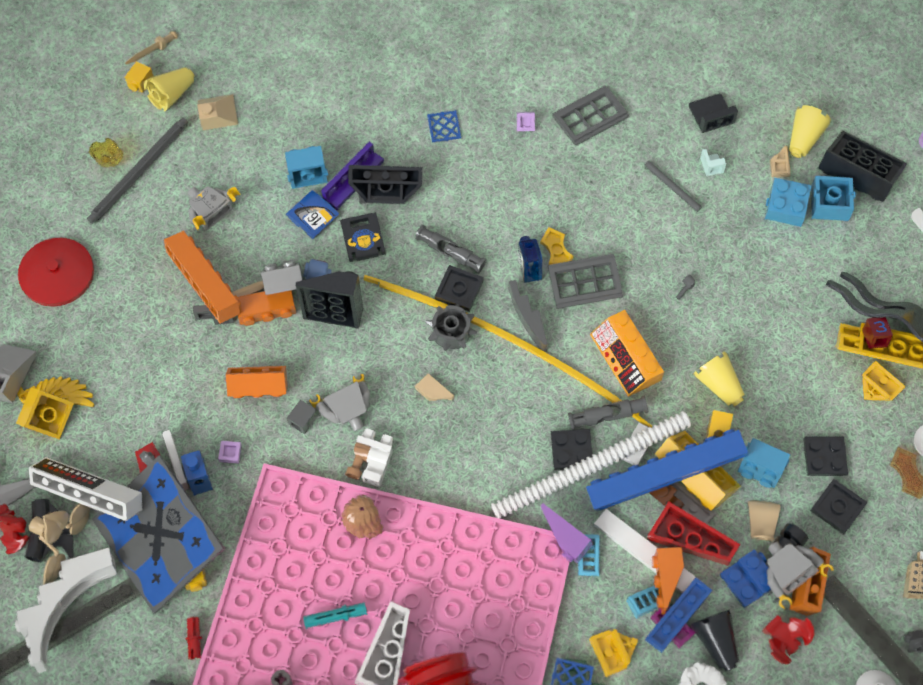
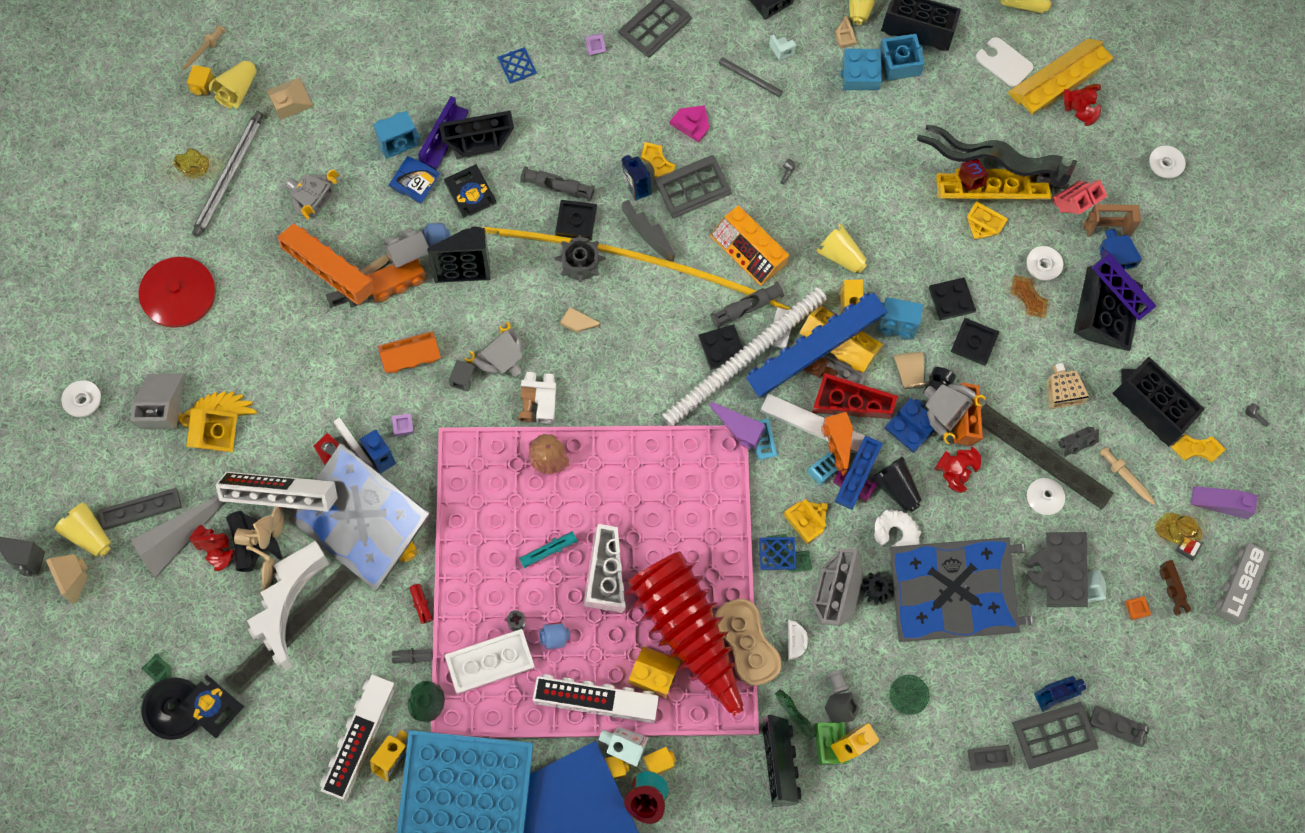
camera: 20 degrees left, 5 degrees up
(601, 217) = (691, 122): none -> dark pink plate

